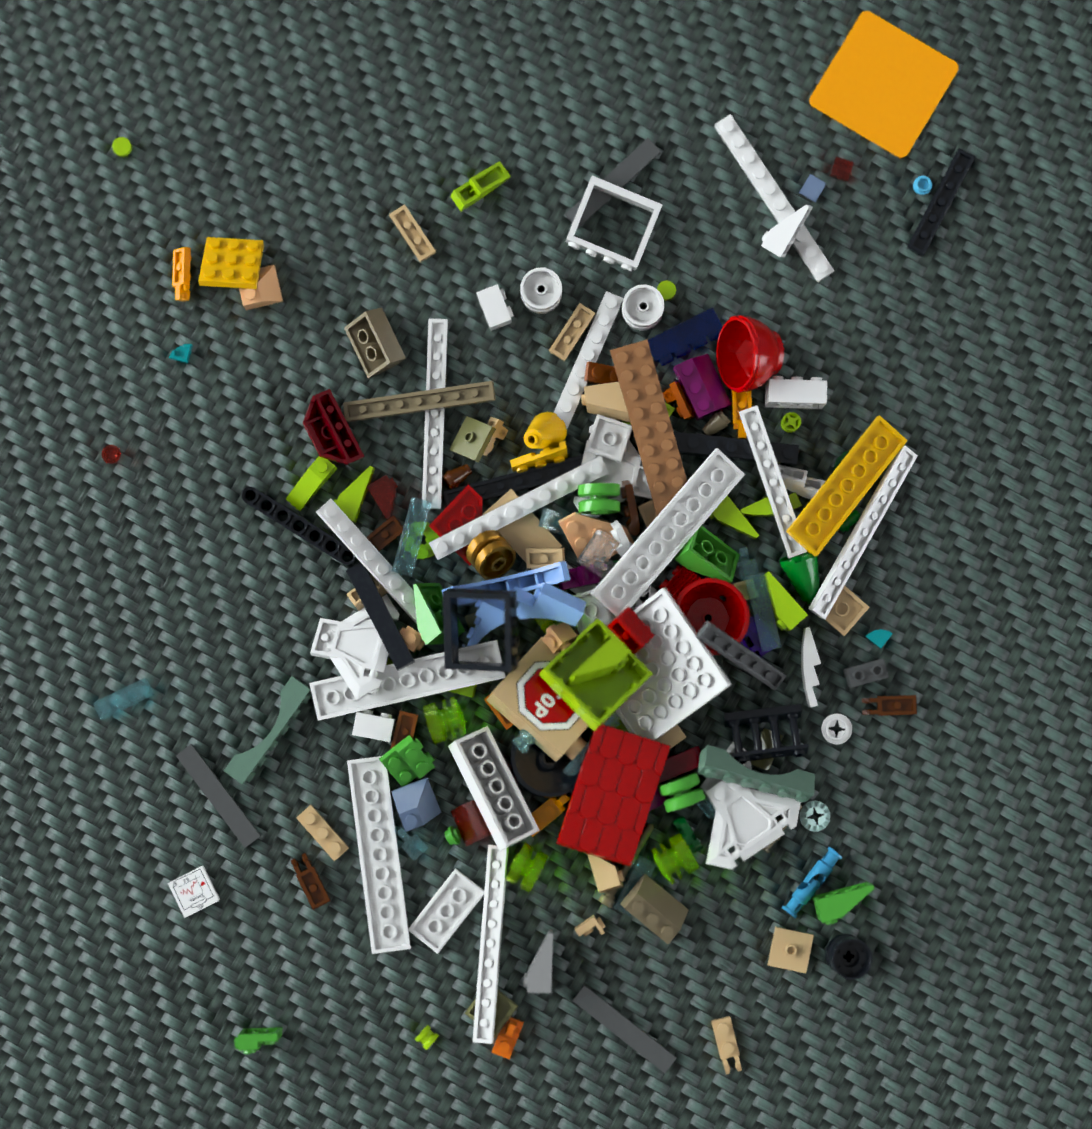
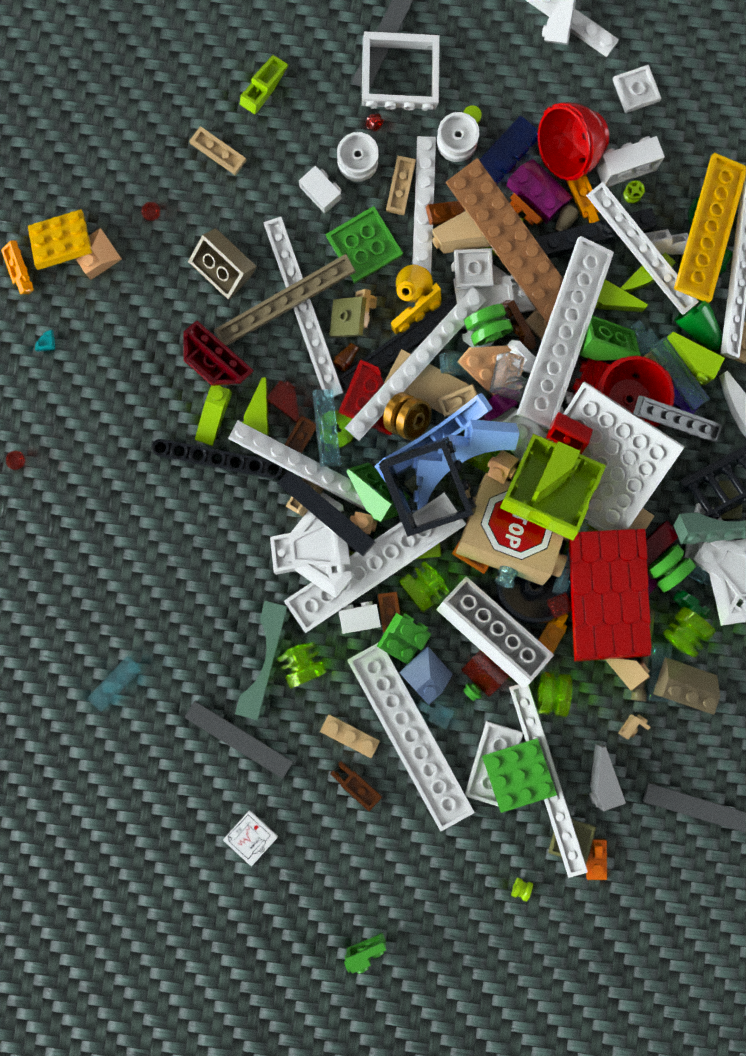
camera: 25 degrees left, 0 degrees up
(302, 749) = (301, 664): none -> clear neon green wheel
(327, 267) = (150, 211): none -> clear red plate
(464, 930) = (519, 775): none -> bright green plate
(516, 375) = (365, 243): none -> bright green plate
(563, 786) = (560, 605): none -> clear red plate
(571, 262) = (374, 122): none -> clear red plate
(833, 324) = (636, 88): none -> white tile

